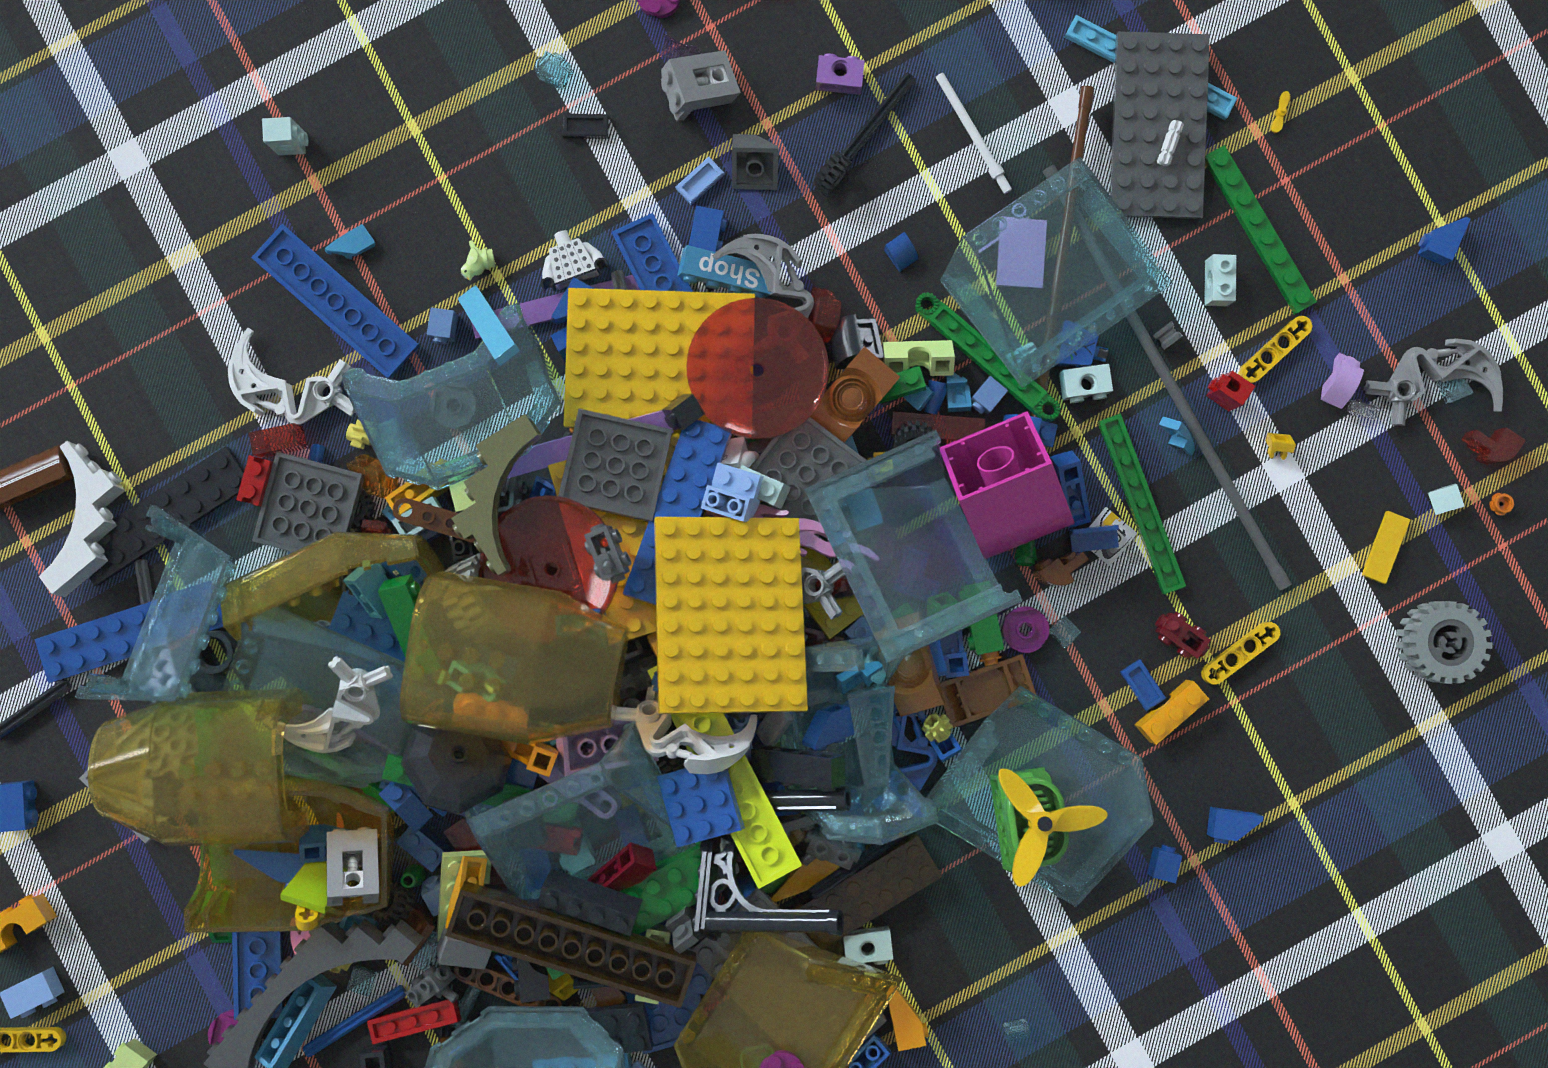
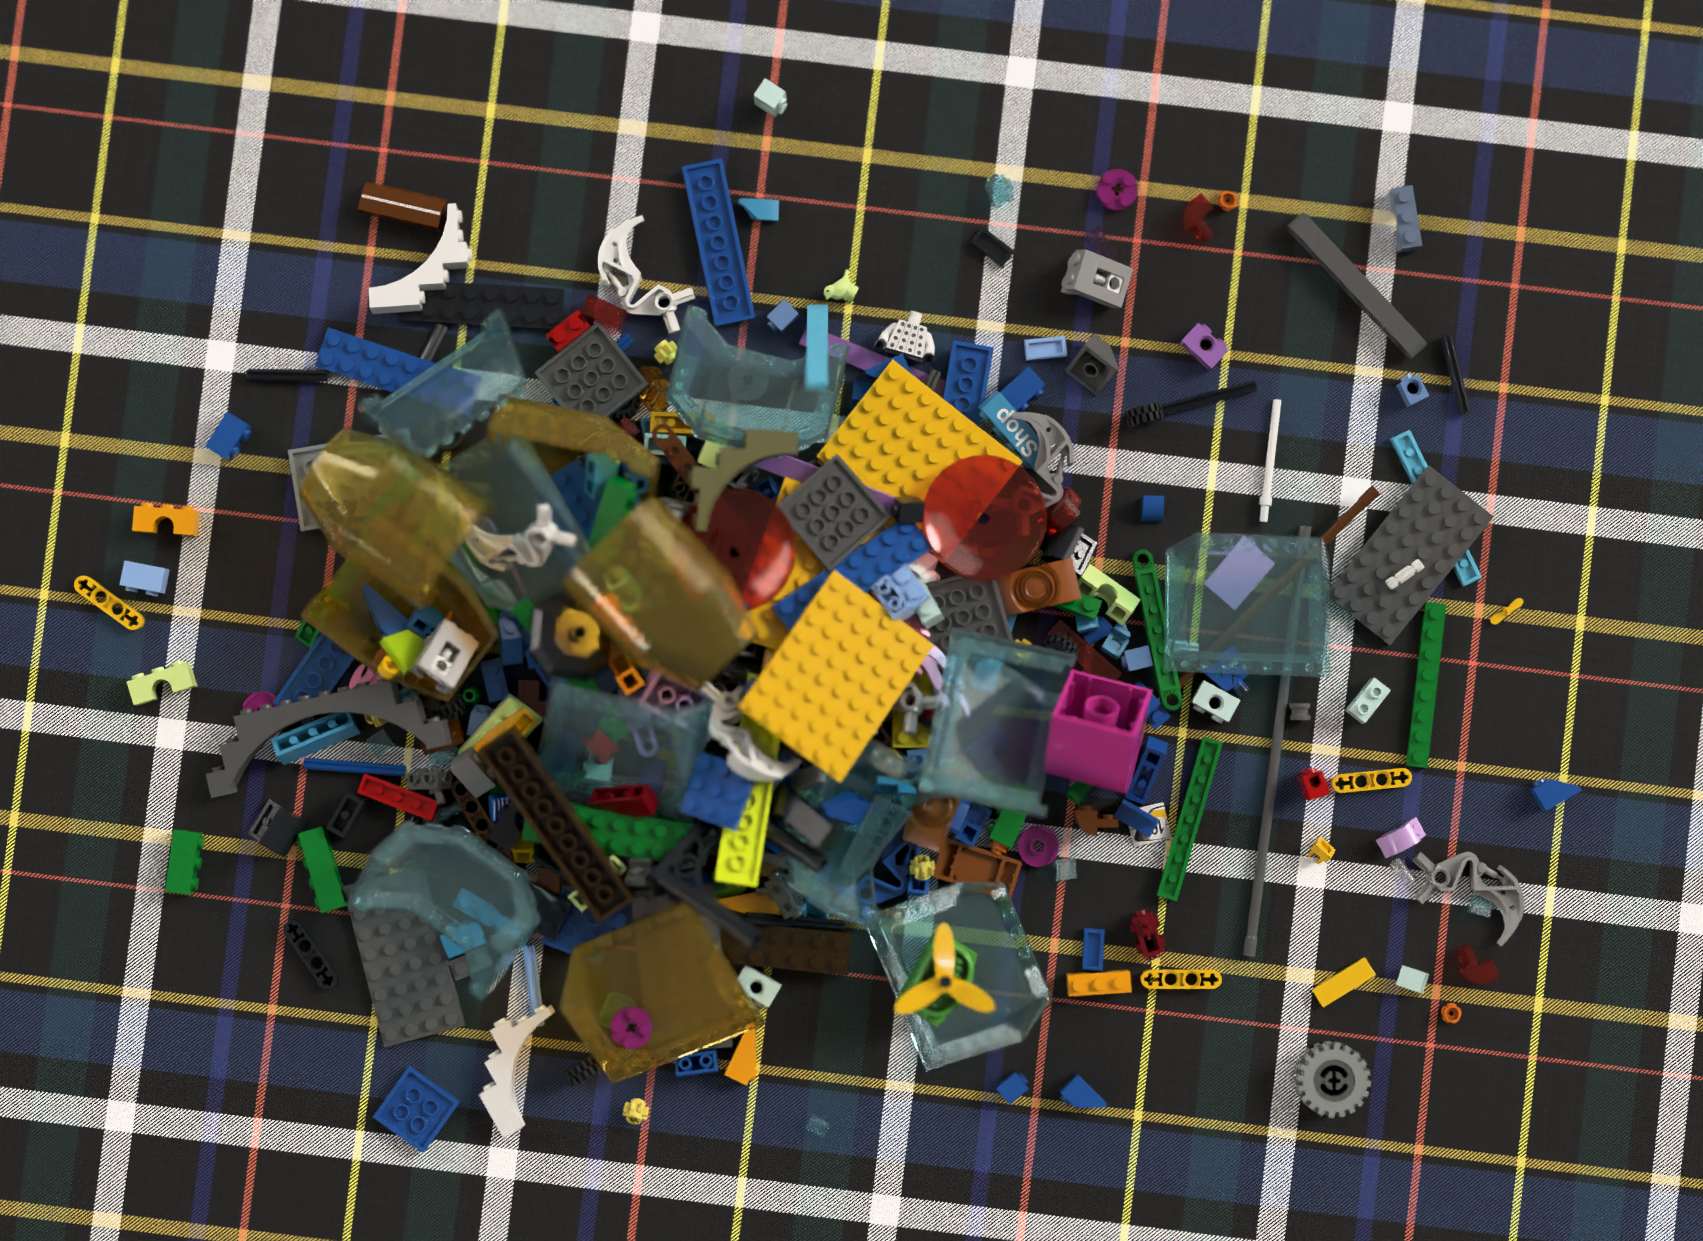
camera: 40 degrees right, 0 degrees up
(590, 902) = (590, 803): black brick -> none
(609, 560) = (781, 577): dark grey brick -> none
(1180, 435) = (1254, 792): dark azure slope -> none

